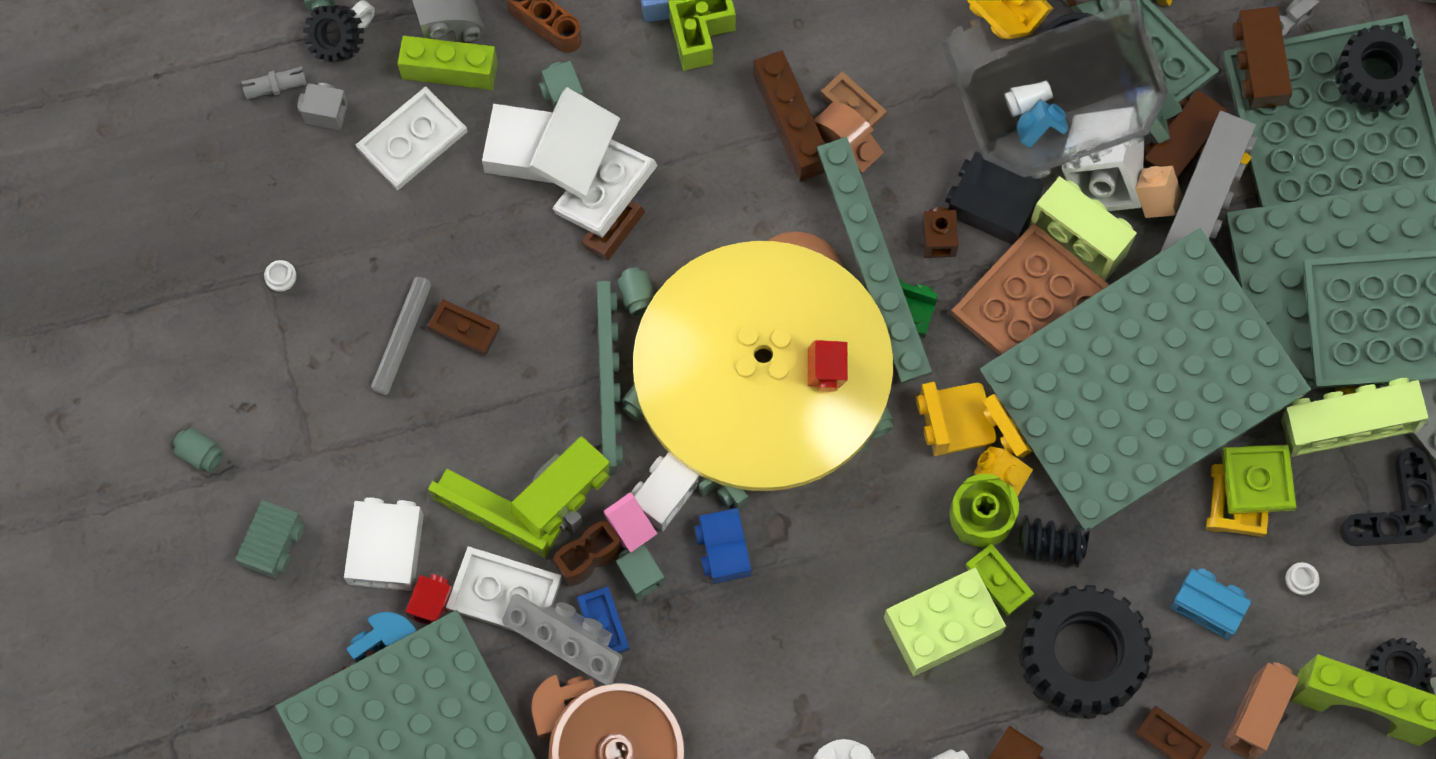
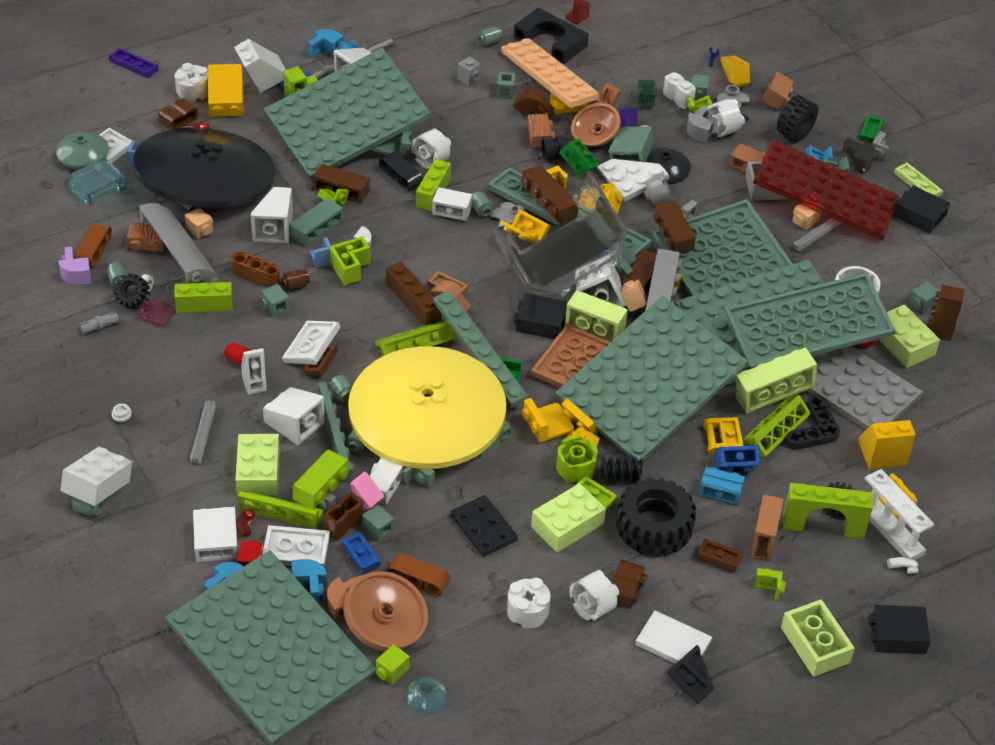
camera: 15 degrees left, 25 degrees down
(216, 407) = (96, 476): none -> white brick
(270, 539) = (142, 542): sand green brick -> none
(323, 106) = (131, 328): light grey brick -> none
(374, 74) = (156, 311): none -> clear pink plate
(411, 138) = (188, 338): white tile -> none
(432, 525) = (243, 520): none -> clear red arm
(463, 327) = (241, 421): reddish brown plate -> none
(473, 423) = (258, 464): none -> yellowish green brick
(484, 191) = (234, 352): none -> red brick
(498, 243) = (254, 371): none -> white slope
(513, 141) = (260, 328): white brick -> none
(515, 652) = (310, 575): none -> dark azure brick
(549, 332) = (295, 414): none -> white slope
(566, 635) = (339, 554): light grey bracket -> none
(574, 143) = (288, 320): white tile -> none
(604, 48) = (295, 279): none -> reddish brown brick
(683, 684) = (421, 574): none -> dark orange beam
(724, 545) = (426, 502): blue brick -> none
(773, 208) = (423, 336): none -> lime fence
(808, 605) = (484, 525): none -> black plate
(827, 365) = (467, 389): red brick -> none
(940, 233) = (514, 336): reddish brown brick -> none
(1025, 97) = (546, 265): white cone -> none
(1038, 120) = (555, 273): dark azure bracket -> none
(1249, 559) = (737, 458): none -> blue brick
(1258, 479) = (731, 419): lime plate -> none
(1302, 579) = (771, 466): white plate -> none
(1334, 488) = (776, 419): none -> lime fence
(1382, 45) = (738, 220): black tyre -> none

